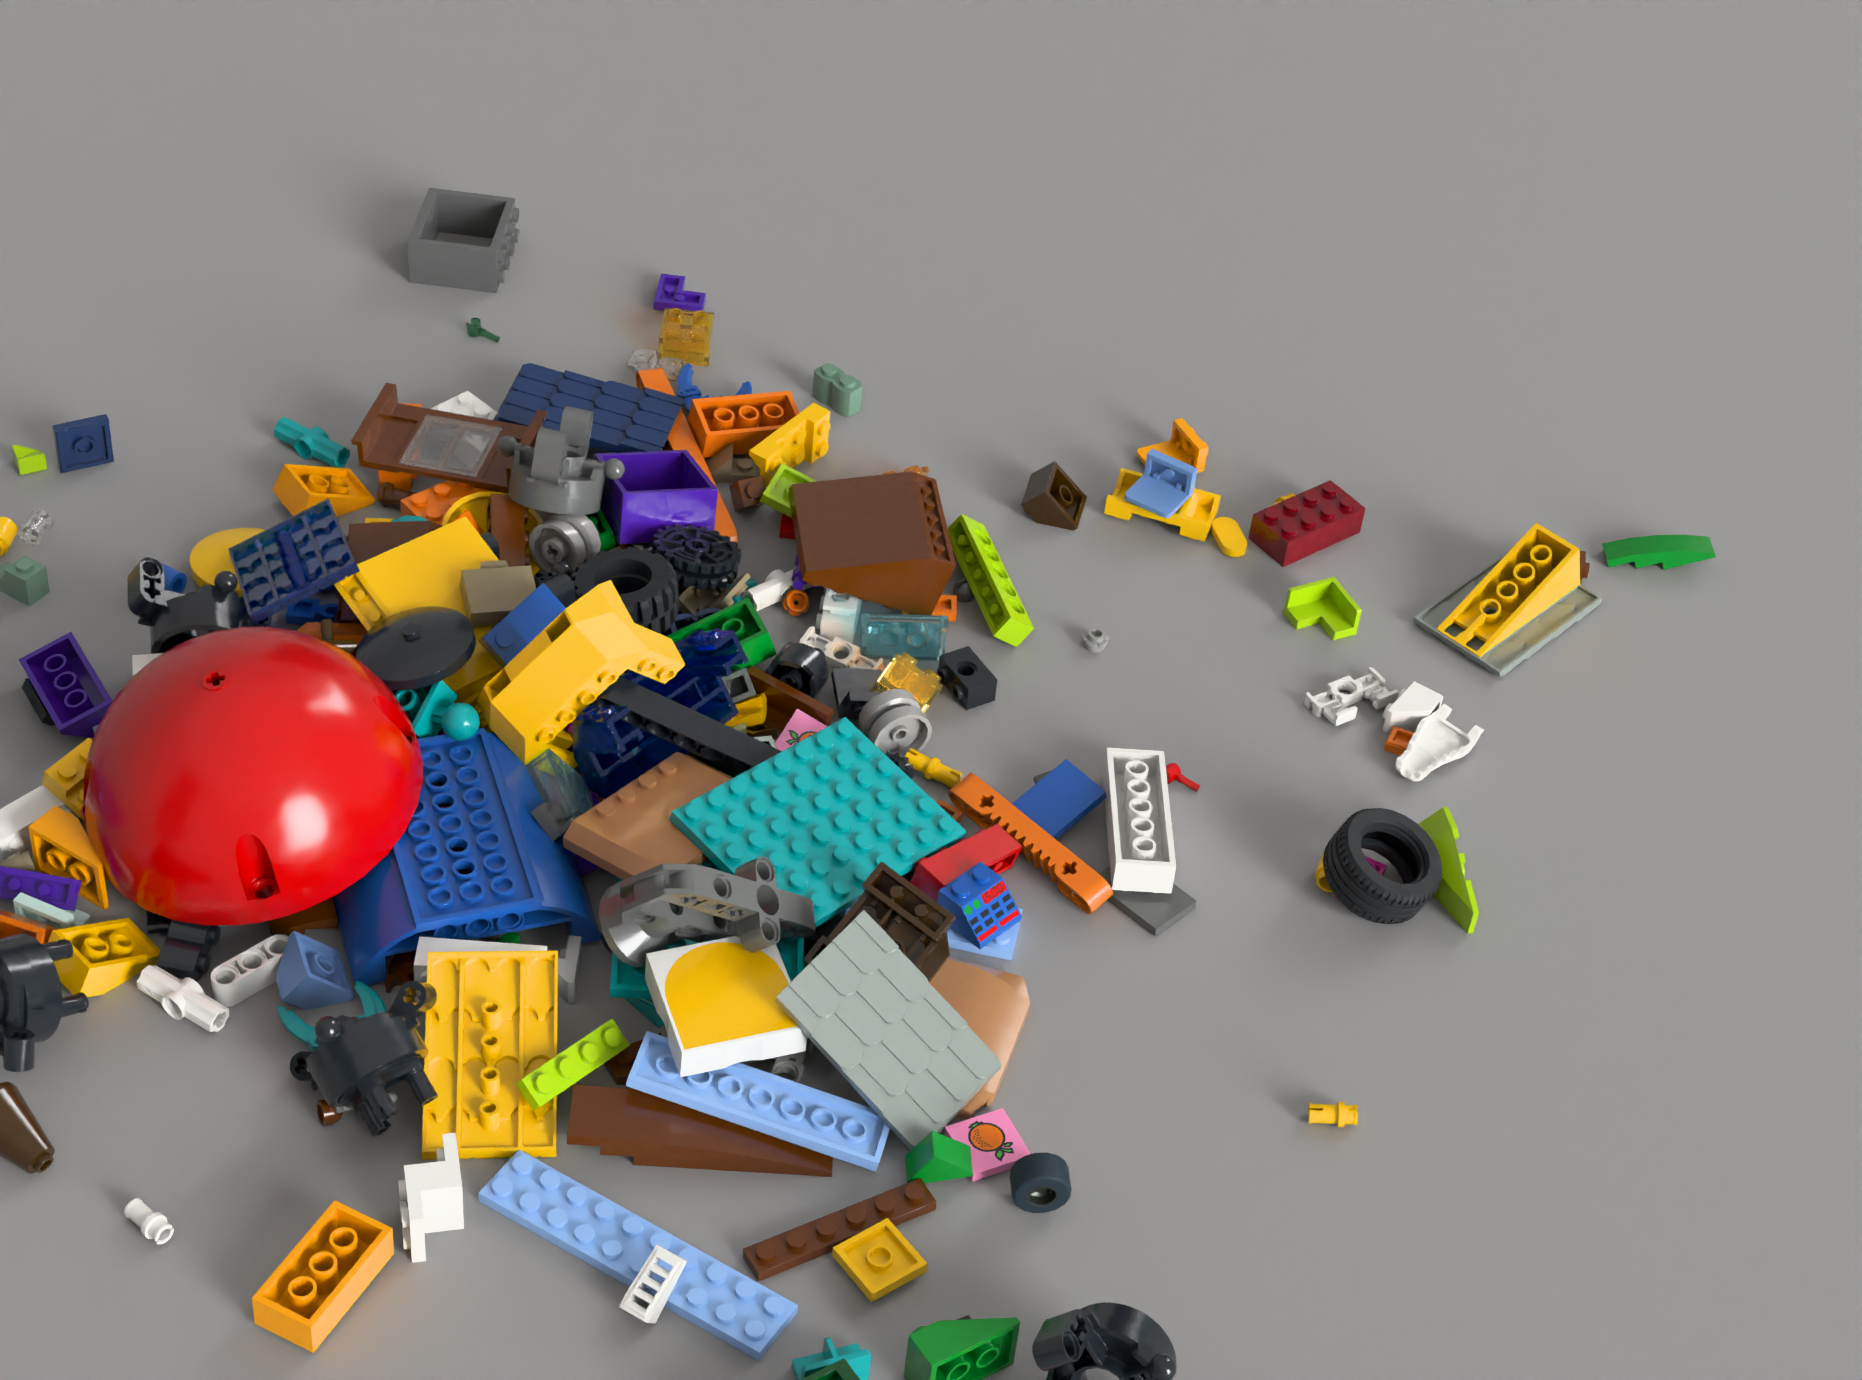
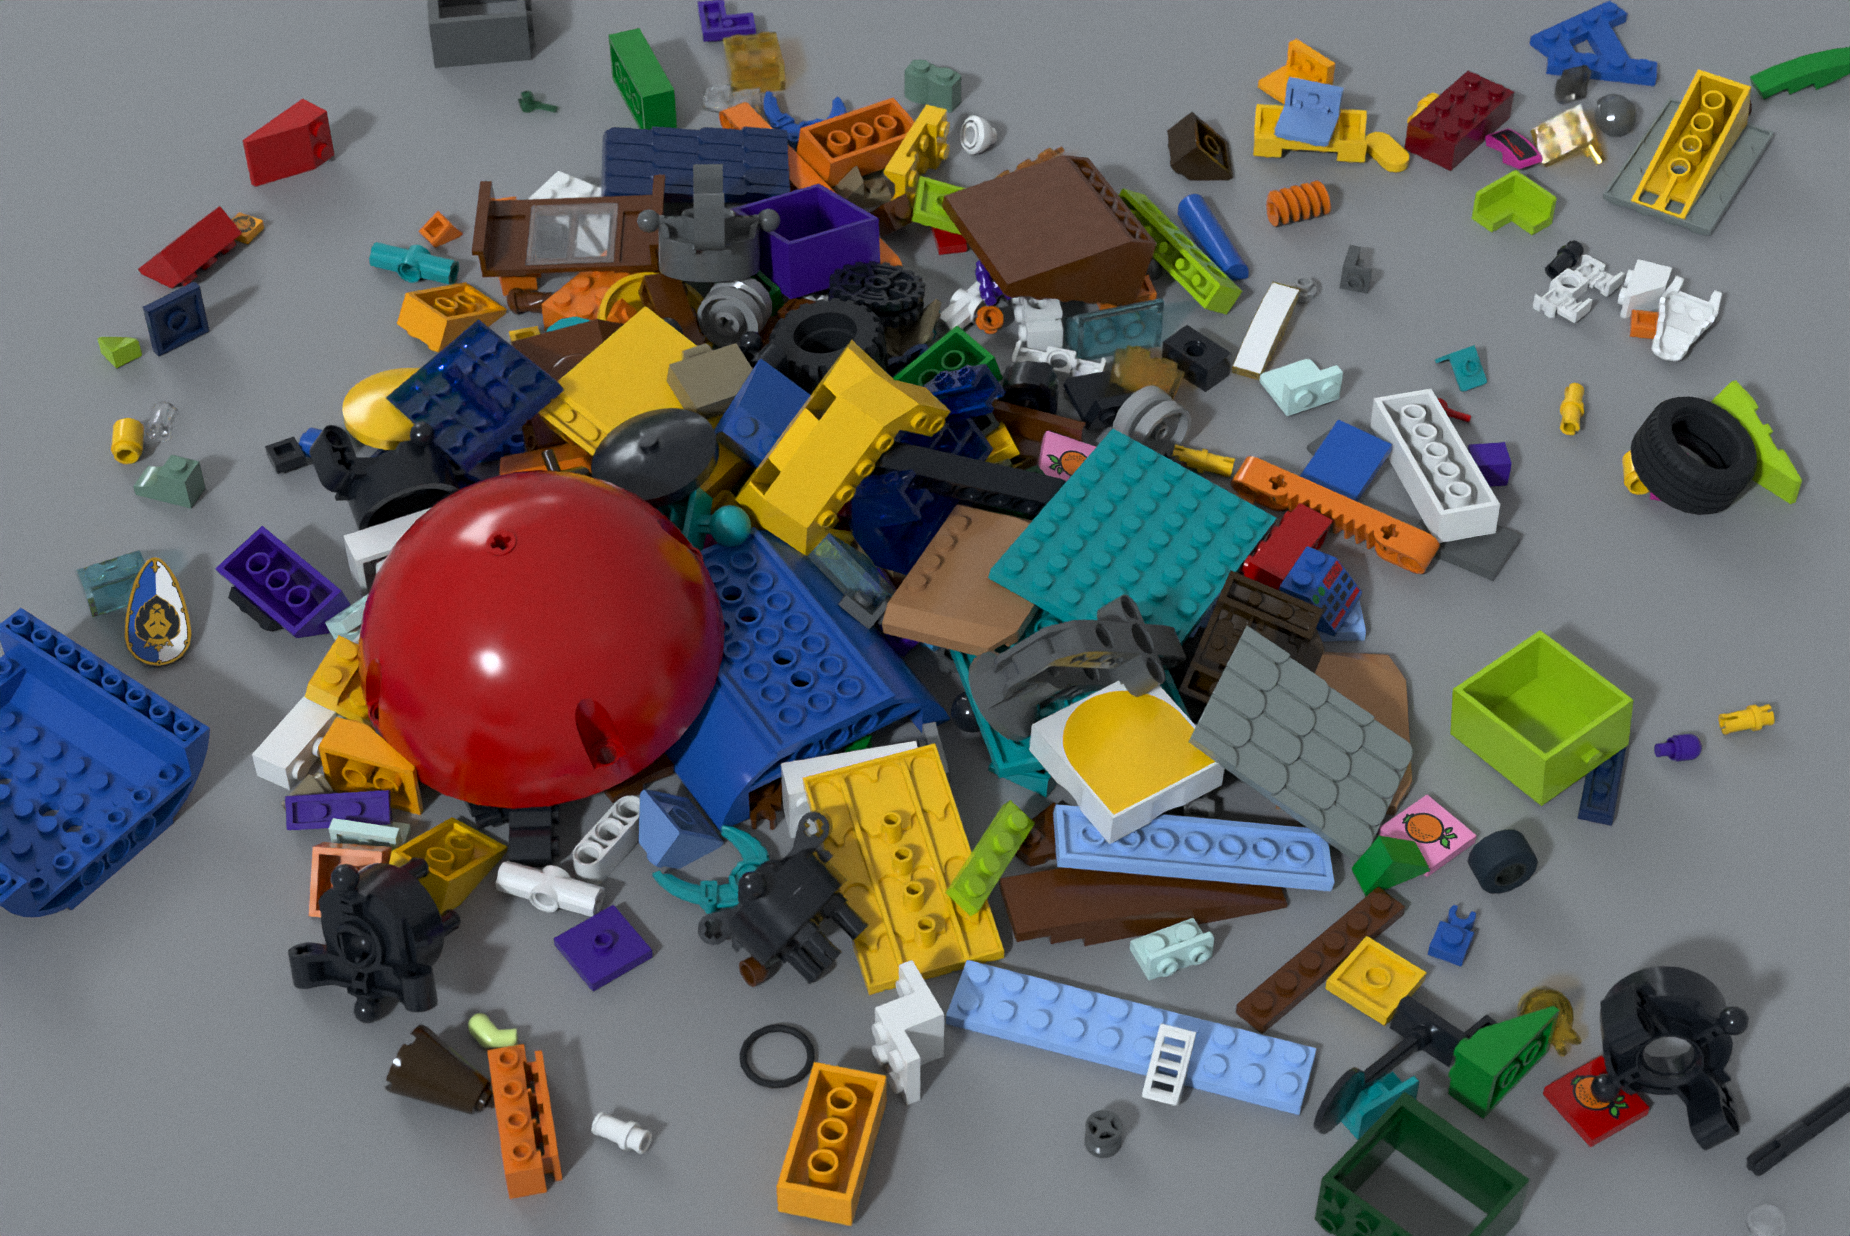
camera: 10 degrees left, 5 degrees up
(67, 1188) = (517, 1130): none -> orange brick
(73, 1108) = (488, 1035): none -> yellowish green arm
(120, 577) = (285, 455): none -> black plate
(127, 389) = (193, 250): none -> red slope
(181, 381) = (248, 226): none -> light orange tile
(207, 1060) = (603, 947): none -> dark purple plate
(246, 318) = (289, 144): none -> red slope
(308, 1167) = (780, 1083): none -> black piece
(347, 419) = (439, 230): none -> orange slope
(574, 1322) = (1101, 1124): none -> dark grey wheel
(577, 329) = (641, 80): none -> green brick
(708, 1186) = (1172, 949): none -> light aqua bracket
(790, 1342) = (1421, 1031): none -> black piece
(858, 441) = (977, 135): none -> white brick
(968, 1242) = (1453, 938): none -> blue plate
(1030, 1324) = (1544, 997): none -> clear yellow piece
(1031, 577) = (1211, 236): none -> blue brick
(1041, 667) = (1266, 330): none -> white slope
(1053, 724) = (1302, 386): none -> light aqua bracket
(1122, 561) = (1297, 202): none -> orange piece
(1132, 1063) = (1541, 717): none -> lime container
(1147, 635) = (1354, 275): none -> dark grey bracket
(1180, 1126) = (1601, 791): none -> dark blue tile
(1192, 831) = (1492, 461): none -> dark purple brick
(1213, 742) = (1466, 368): none -> teal bracket
(1258, 1124) = (1680, 747): none -> dark purple cylinder
(1296, 801) = (1572, 408): none -> yellow pin
(1349, 559) = (1514, 147): none -> slope
(1353, 665) = (1566, 257): none -> black pin
(1401, 557) = (1565, 136): none -> clear yellow bracket
(1428, 514) = (1572, 84): none -> clear smoke tile
(1457, 551) = (1615, 115): none -> dark grey piece
(1479, 501) = (1611, 59): none -> blue plate

